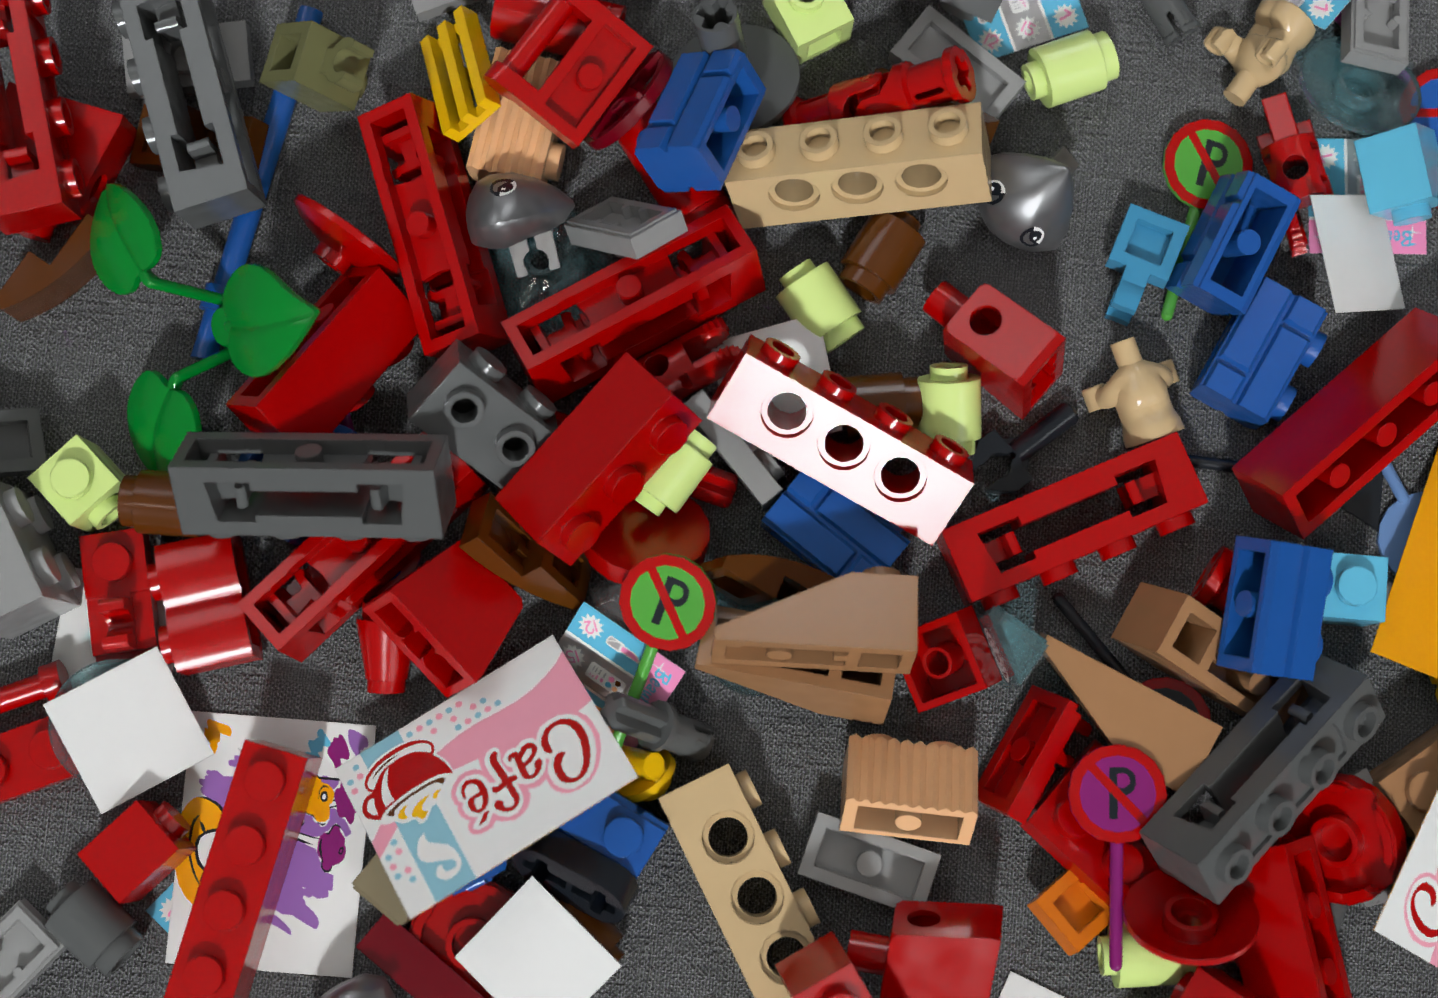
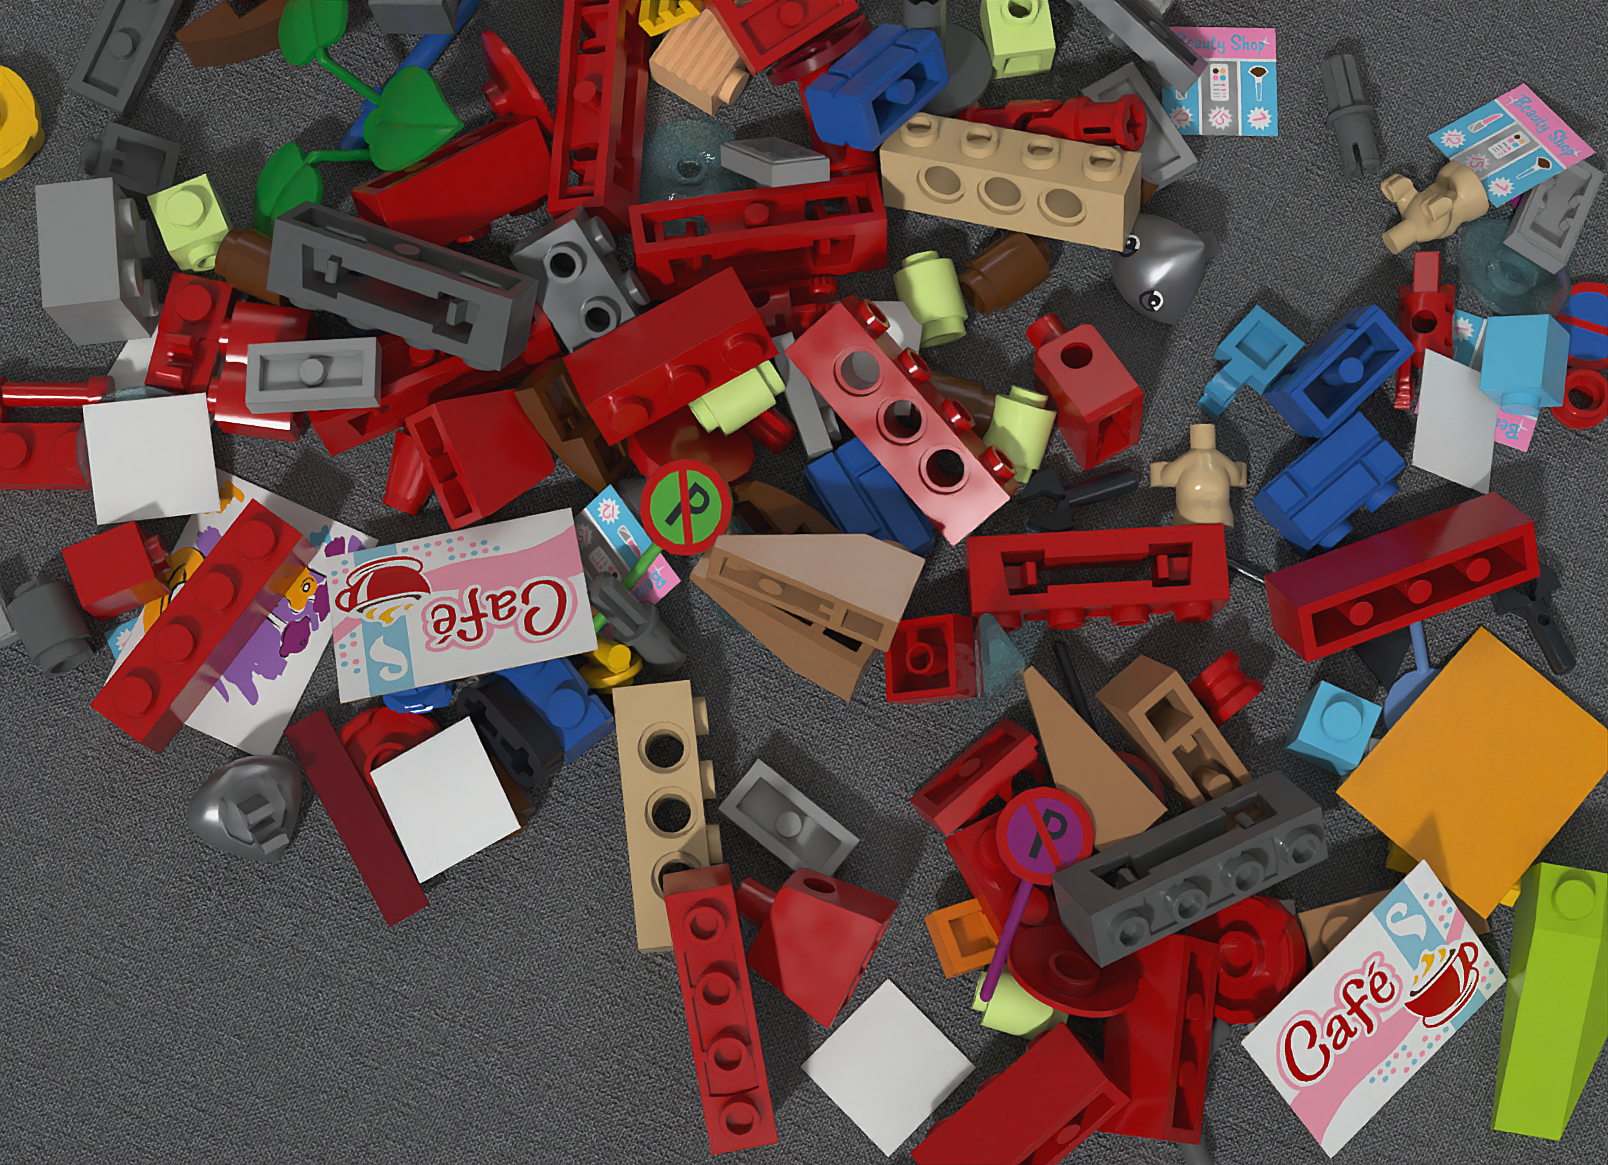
camera: 20 degrees right, 5 degrees down
(260, 602) = (313, 375): none -> light grey plate
(378, 890) = (323, 681): dark tan slope -> none
(515, 207) = (677, 112): flat silver piece -> none
(909, 789) = (850, 766): light nougat brick -> none
(1070, 67) = (1244, 163): yellowish green brick -> none
(1192, 168) = (1328, 294): piece -> none
(1275, 608) = (1256, 713): blue brick -> none

